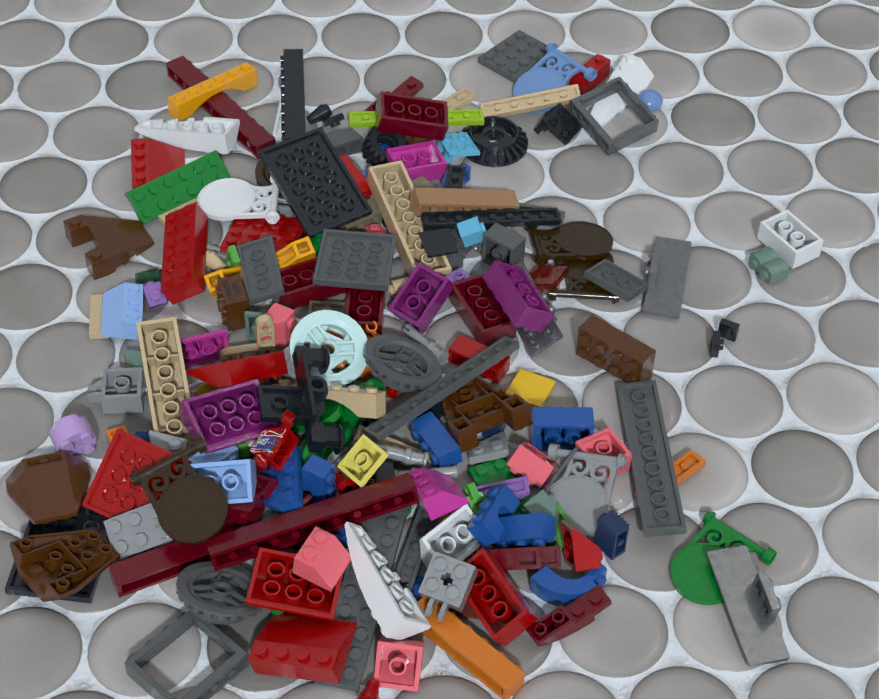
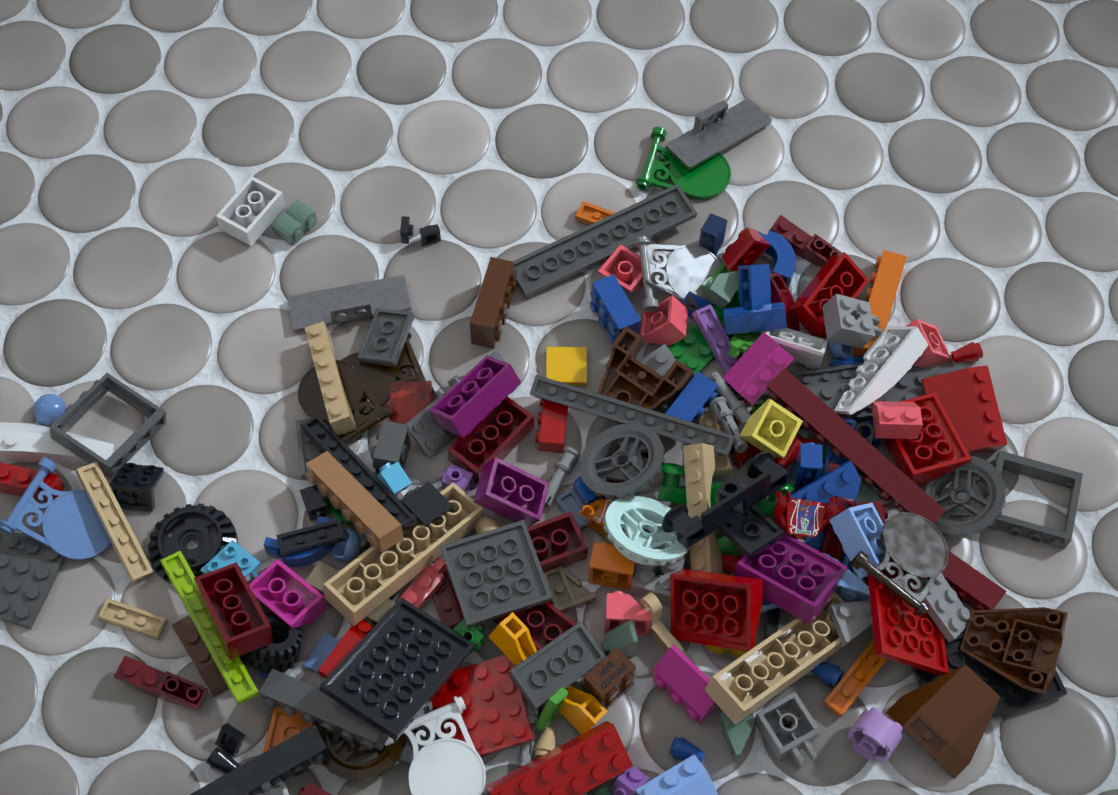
camera: 115 degrees left, 15 degrees up
(557, 226) = (329, 378): none -> tan arch

